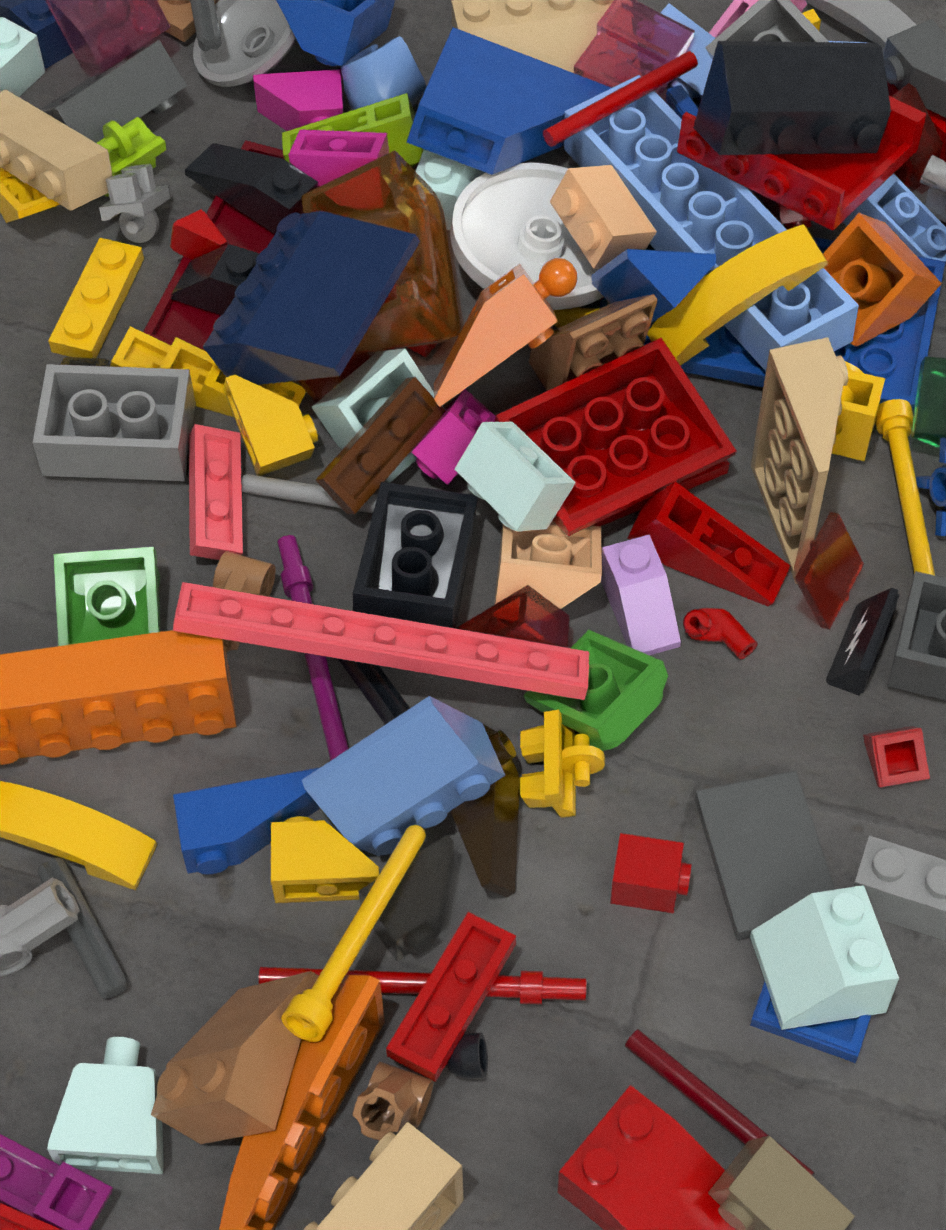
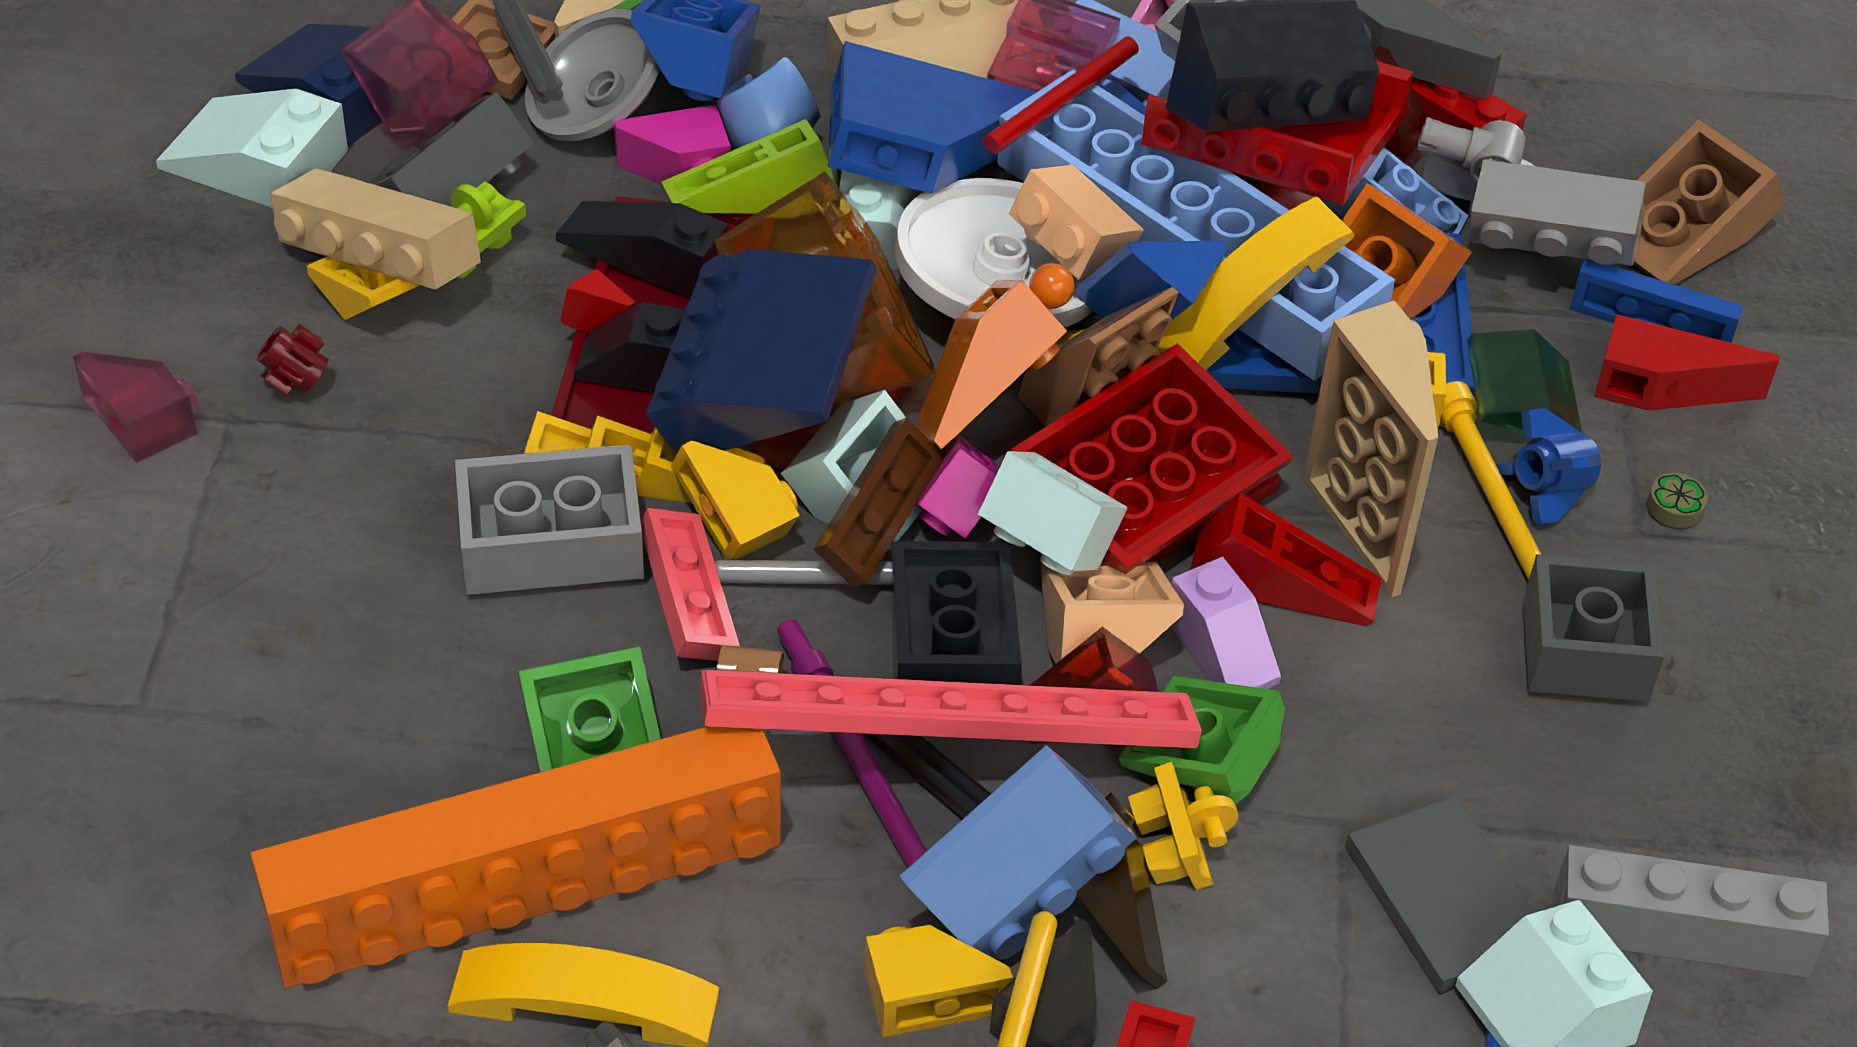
camera: 15 degrees left, 10 degrees down
(96, 299) = (480, 391): yellow plate -> none
(136, 197) = (508, 276): light grey hips -> none
(234, 820) = (818, 944): blue slope -> none
(335, 153) = (741, 191): dark pink slope -> none
(649, 873) = (1322, 931): red brick -> none
(719, 626) = (1322, 653): red arm -> none
(829, 570) = (1435, 571): clear red piece -> none
(863, 642) = (1489, 646): black slope -> none
(897, 755) = (1563, 764): red slope -> none

